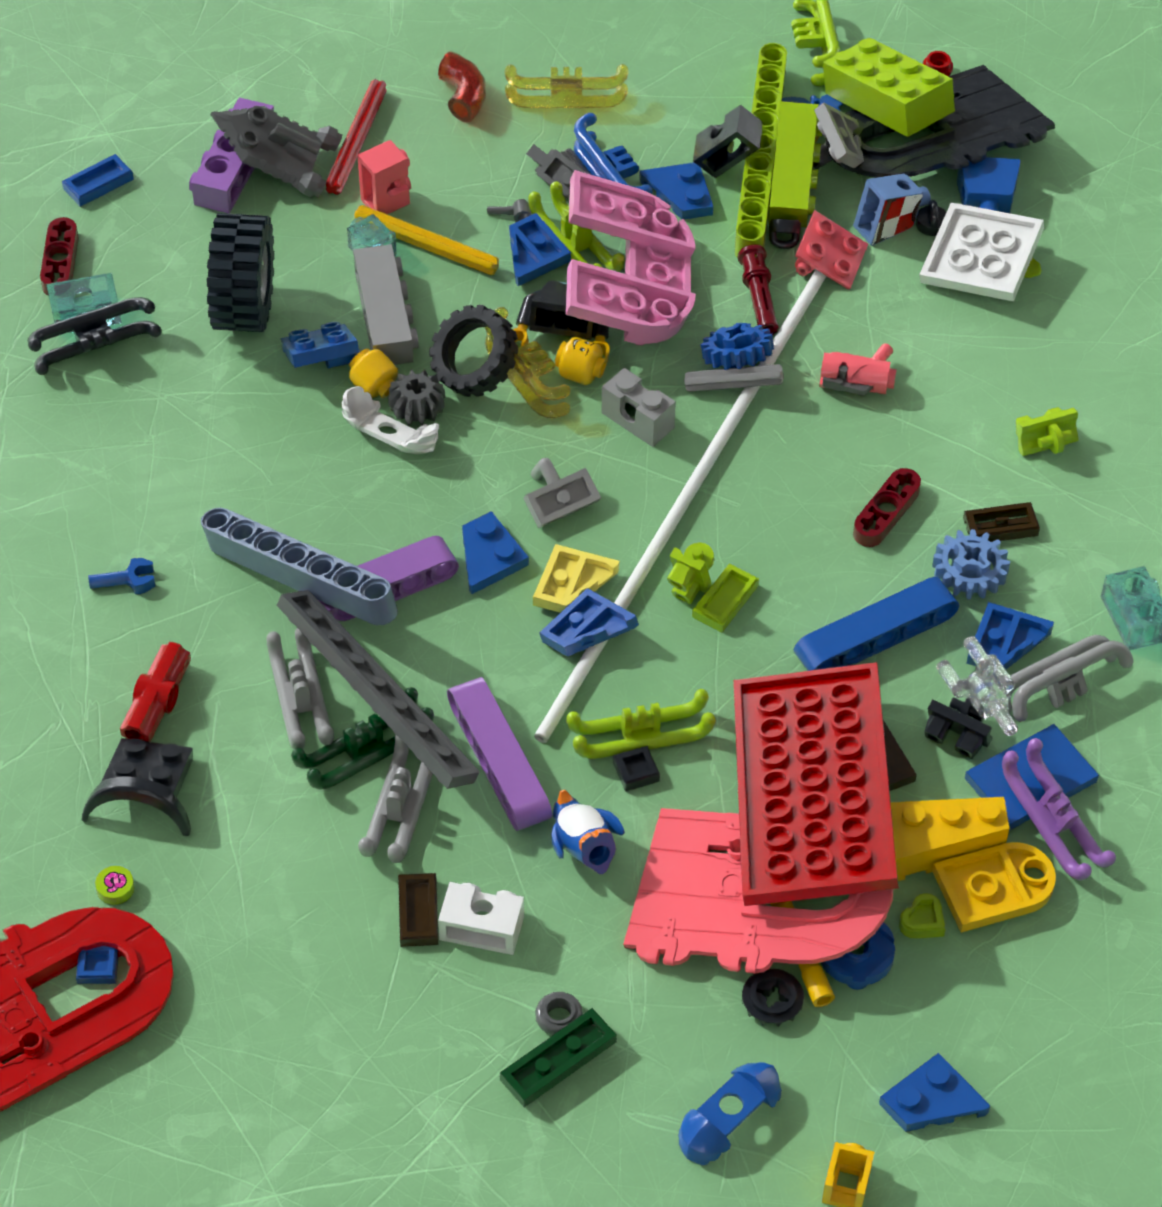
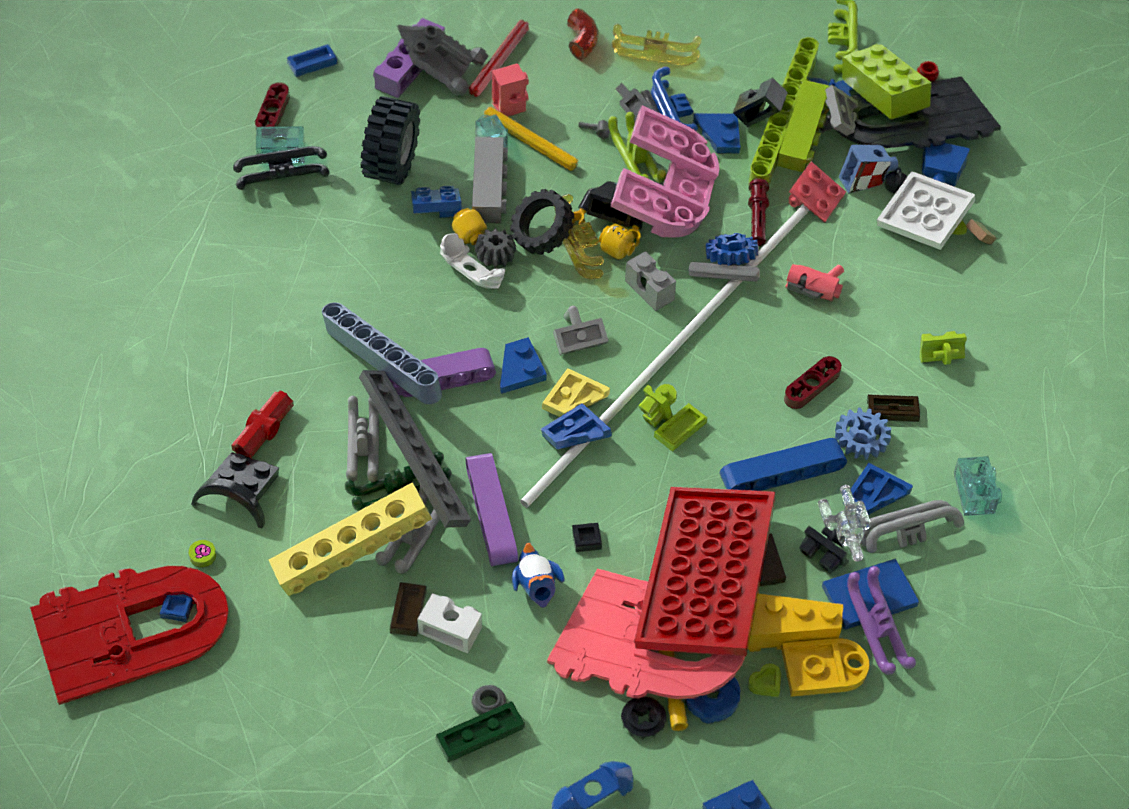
camera: 10 degrees right, 0 degrees up
(128, 577) = (265, 340): blue bar -> none
(301, 827) = (336, 539): none -> light yellow brick
(535, 249) = (605, 157): blue wing -> none
(641, 728) = (596, 509): lime piece -> none
(784, 226) = (789, 170): black tile -> none
(1060, 269) = (981, 232): none -> medium nougat tile

